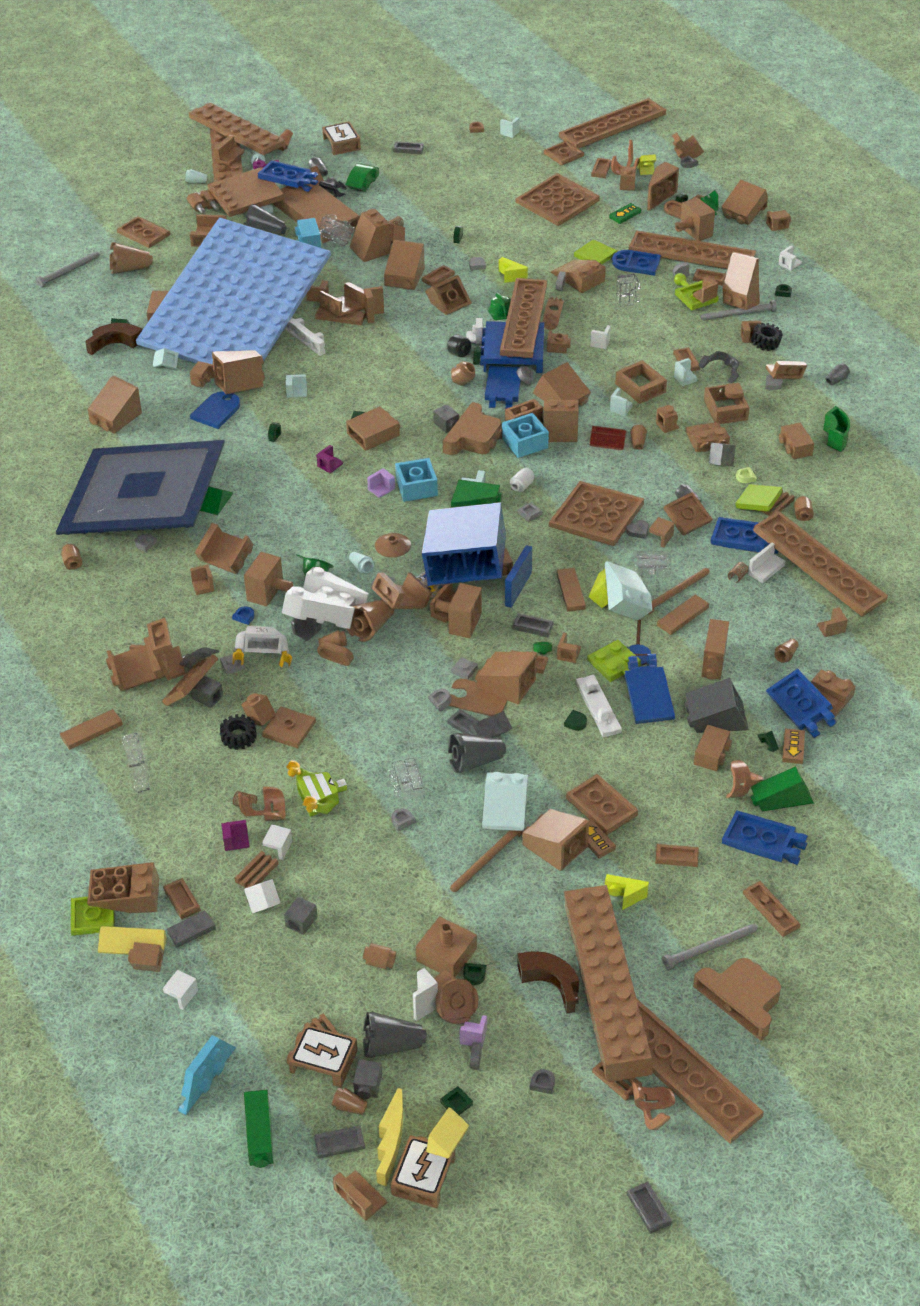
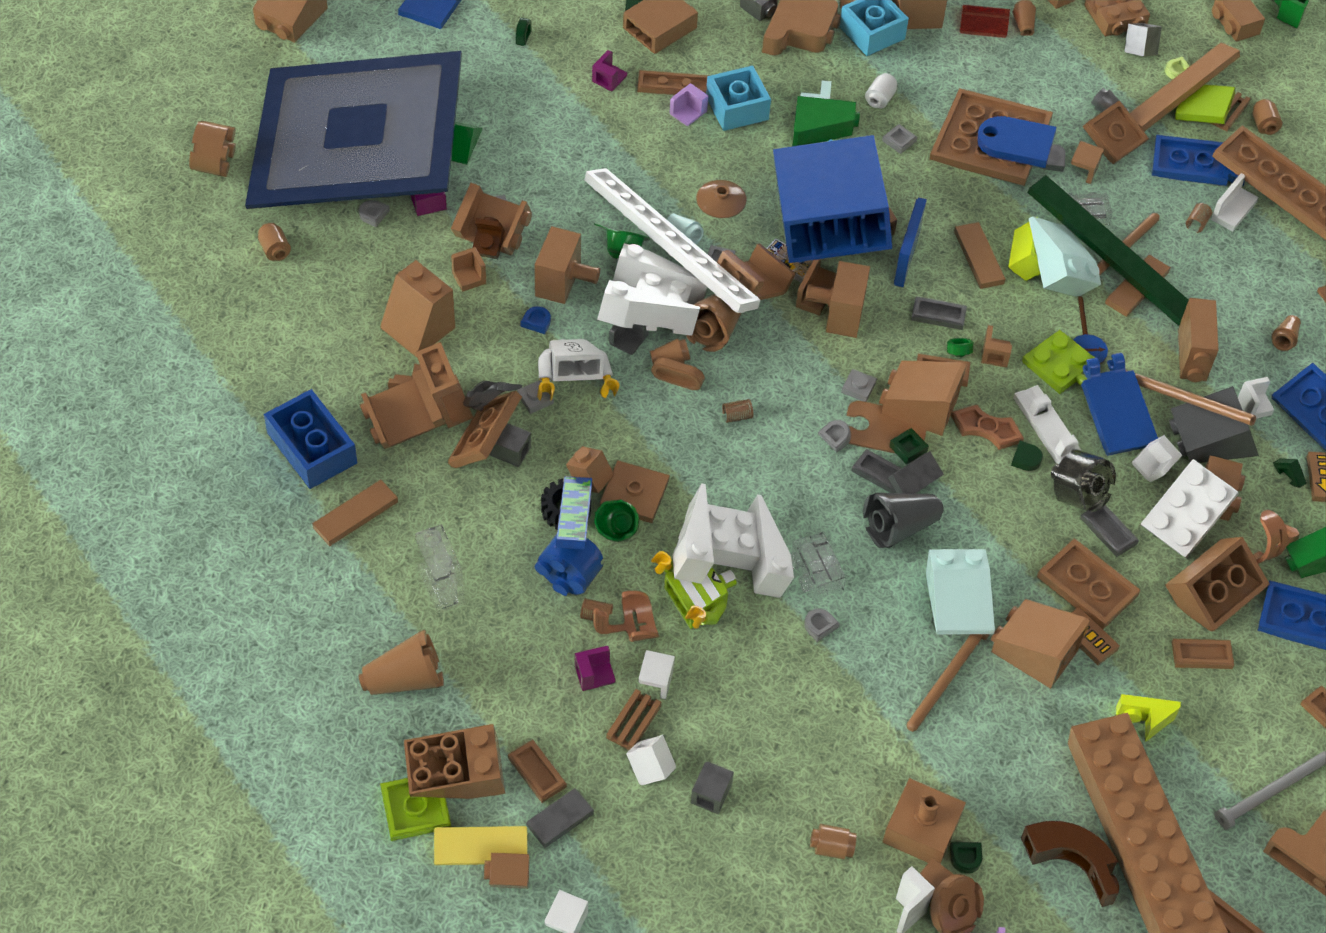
camera: 10 degrees left, 10 degrees up
(40, 495) = (212, 148): none -> medium nougat brick
(68, 679) = (310, 438): none -> blue brick
(102, 825) = (404, 668): none -> medium nougat cone
(160, 599) = (418, 309): none -> medium nougat slope
(184, 537) = (429, 203): none -> magenta panel
(220, 560) = (488, 237): none -> reddish brown bracket
(230, 766) = (570, 568): none -> blue brick
(237, 732) = (574, 513): none -> tile
(270, 740) = (617, 515): none -> green hair
(347, 759) = (733, 540): none -> white wedge
(348, 567) = (673, 241): none -> white plate
(364, 468) = (669, 82): none -> medium nougat tile
(367, 677) = (745, 406): none -> medium nougat piece
(490, 707) = (908, 446): none -> dark green tile
(559, 703) = (1000, 431): none -> nougat tile
(610, 735) = (1083, 480): none -> clear smoke brick
(613, 515) = (1017, 140): none -> blue tile
(626, 771) = (1110, 530): none -> flat silver tile
(662, 585) = (1110, 248): none -> dark green tile
(669, 726) = (1156, 459): none -> white panel
(684, 758) = (1189, 508): none -> white plate
(697, 809) = (1218, 583): none -> medium nougat slope
(701, 686) = (1196, 400): none -> medium nougat piece
(745, 485) = (1184, 85): none -> medium nougat tile
(752, 691) = (1254, 398): none -> white panel

